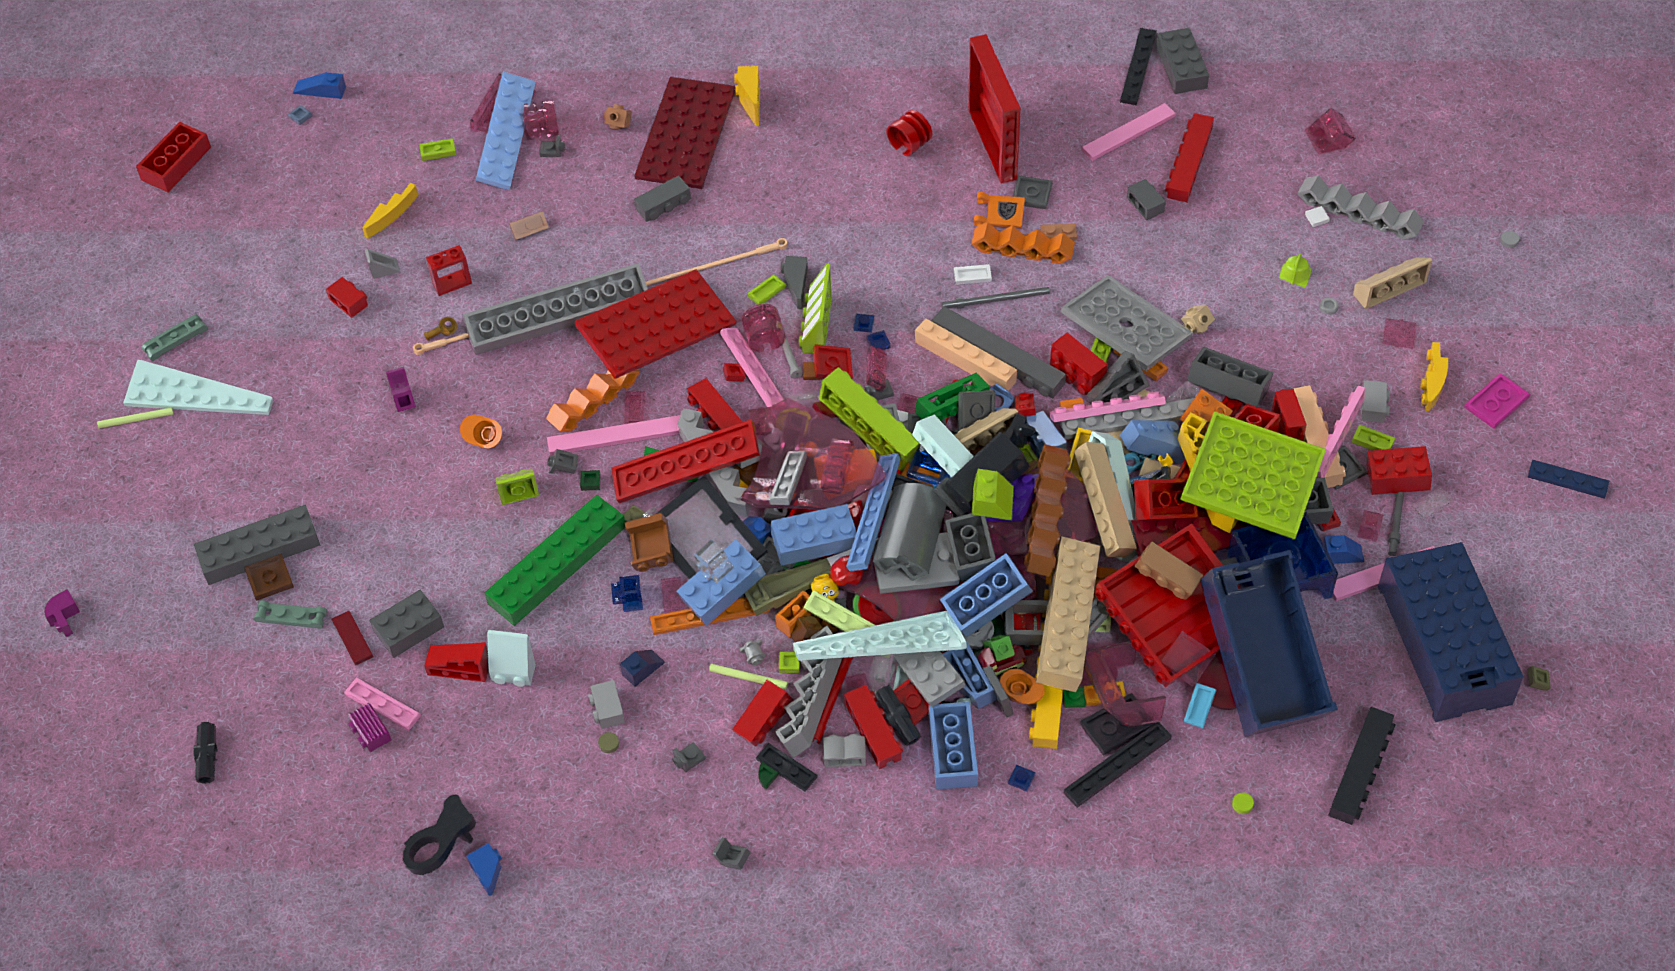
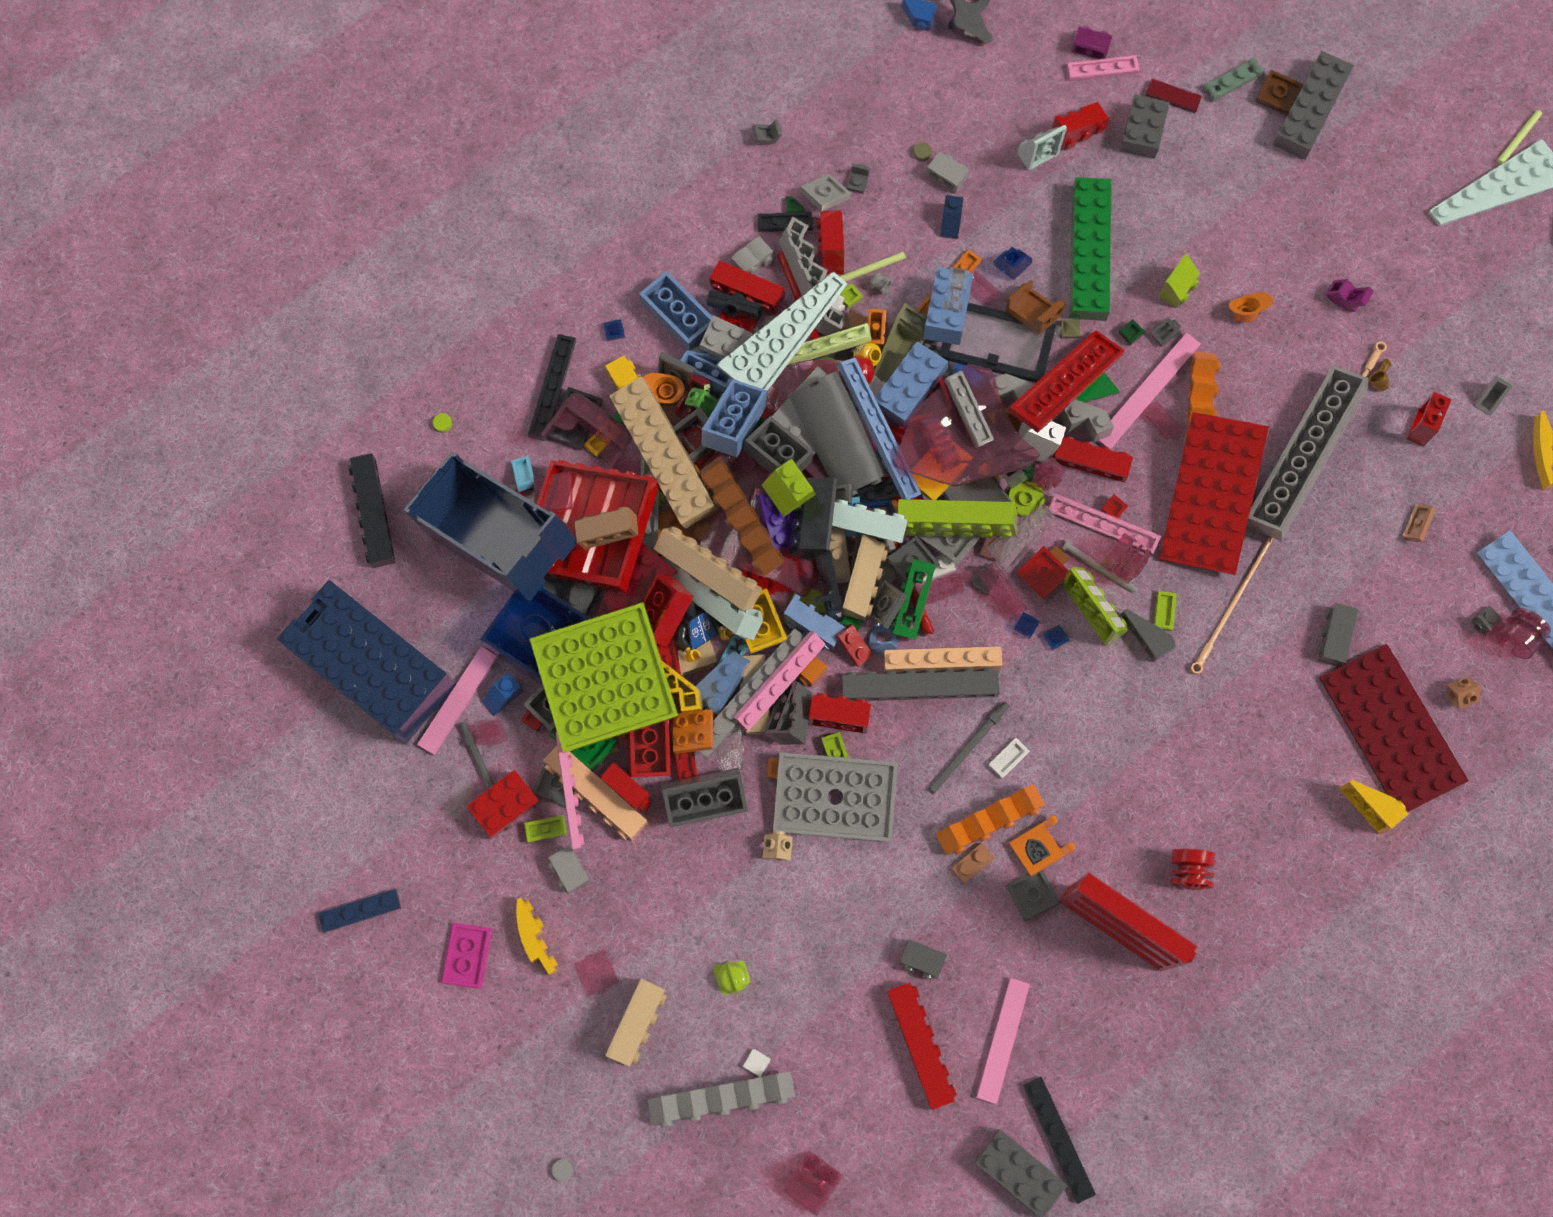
camera: 140 degrees right, 20 degrees up
(347, 297) = (1484, 346): red brick -> none
(730, 758) = (825, 192): none -> light grey plate
(1328, 306) = (677, 957): light grey tile -> none
(1539, 678) = (280, 686): olive tile -> none

